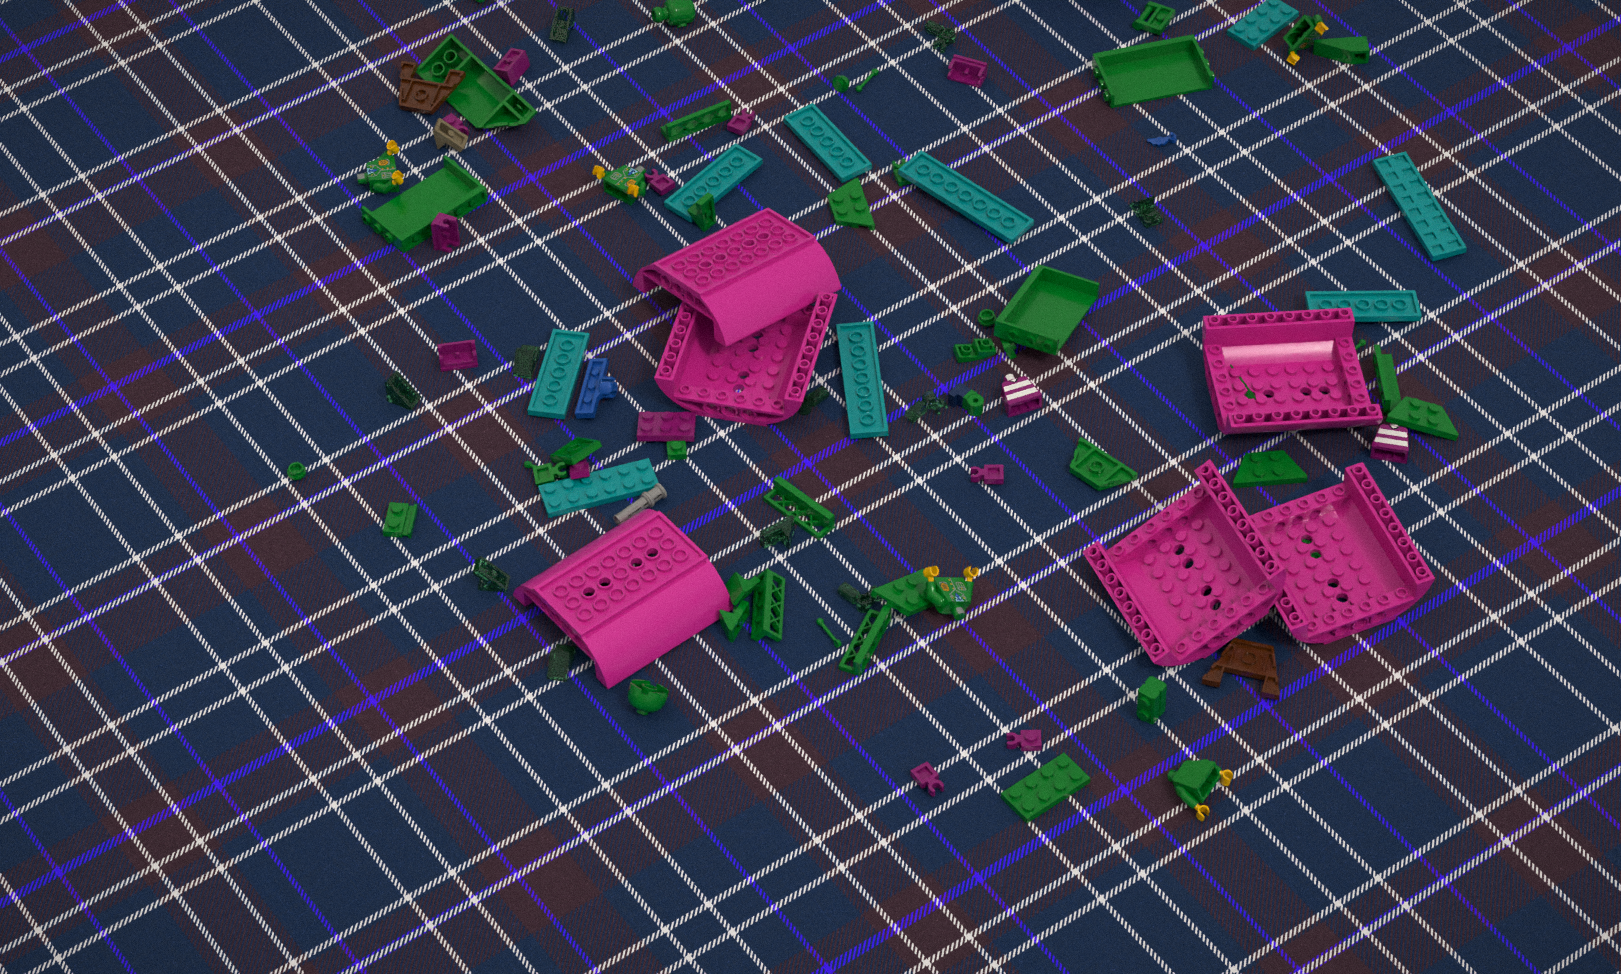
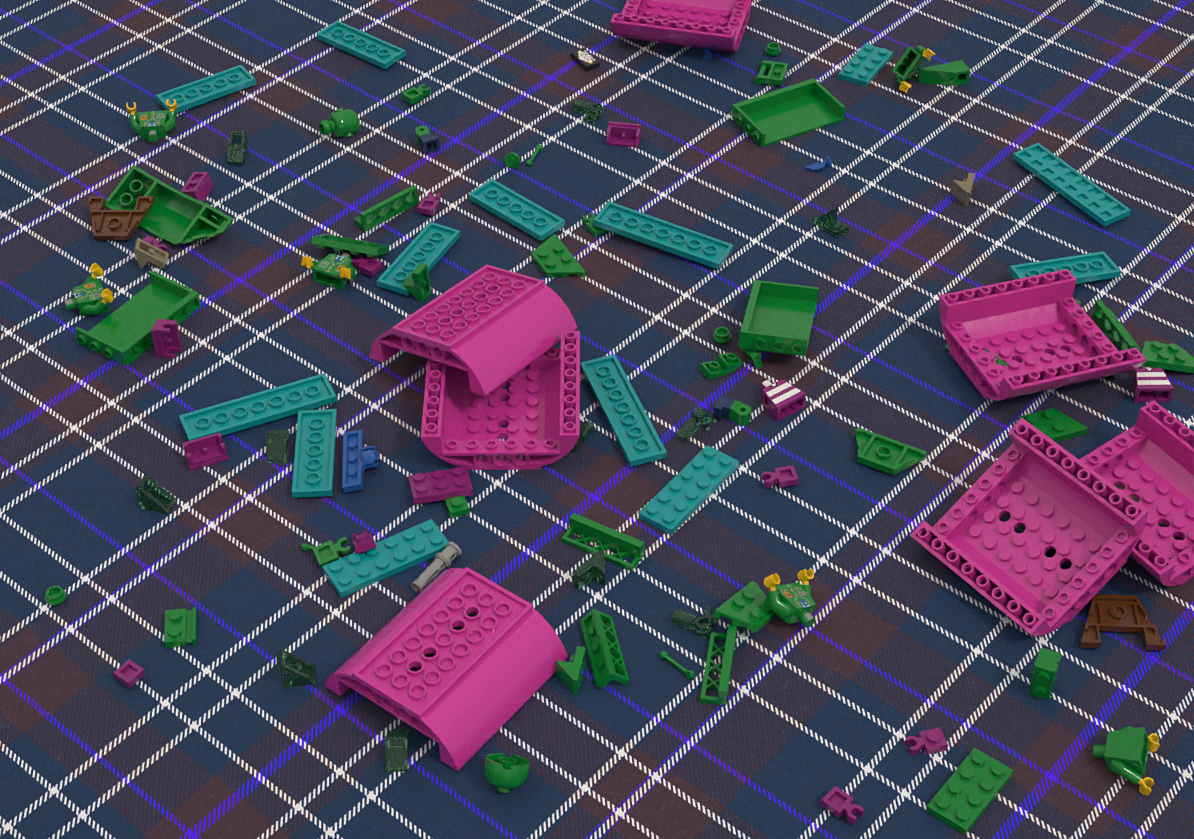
camera: 15 degrees left, 5 degrees down
(347, 553) = (129, 673): none -> magenta plate
(517, 319) = (258, 408): none -> teal plate
(575, 450) = (353, 524): green tile -> none
(651, 159) = (354, 246): none -> green plate
(740, 588) = (571, 633): green slope -> none
(758, 46) = (426, 141): none -> dark blue leg
(898, 471) = (688, 490): none -> teal plate
(1302, 195) = (963, 189): none -> dark tan slope

